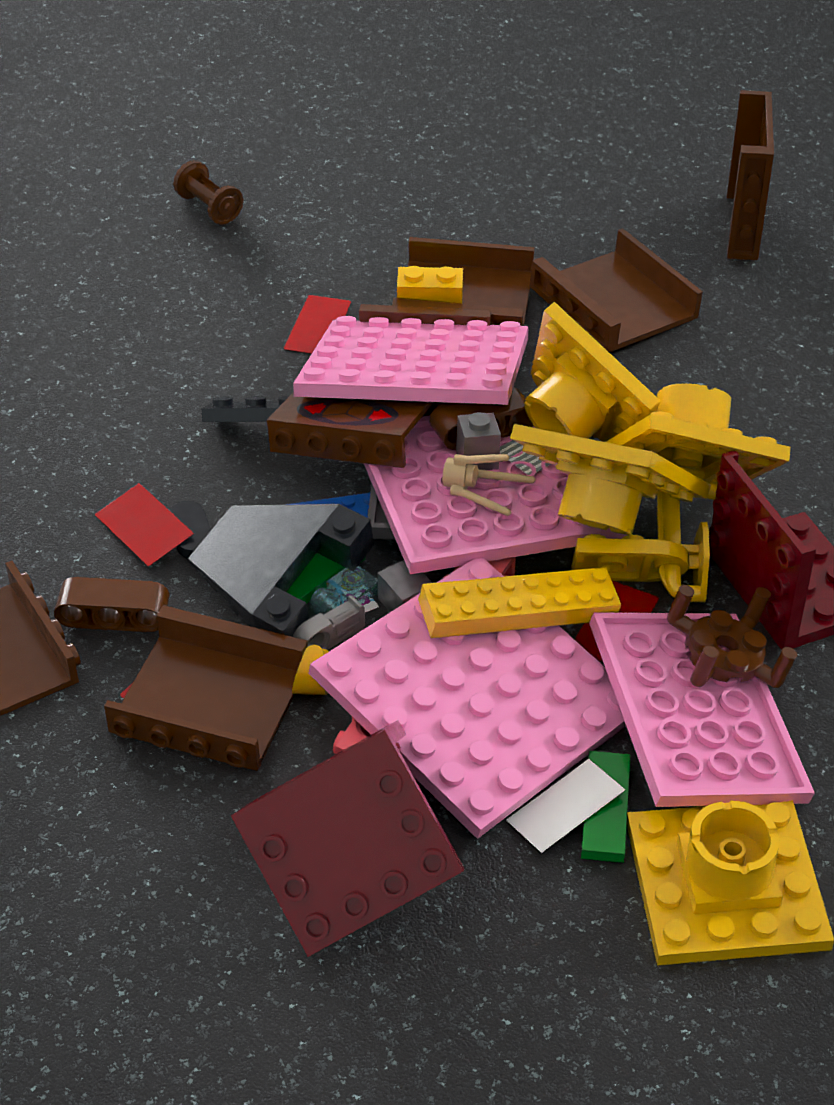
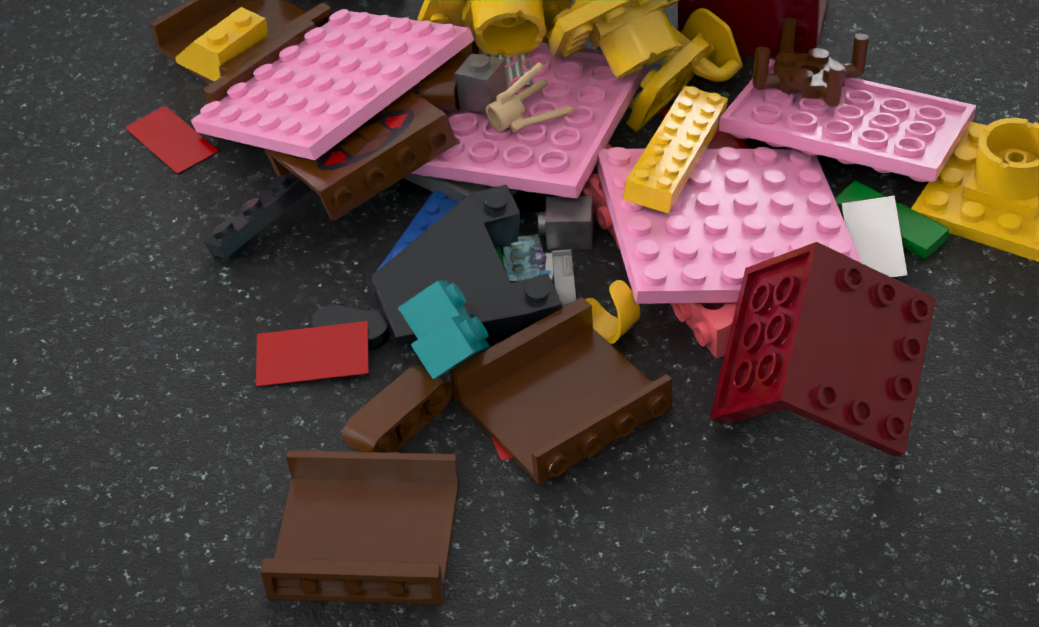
camera: 50 degrees left, 0 degrees up
(194, 580) = (443, 328): none -> teal brick

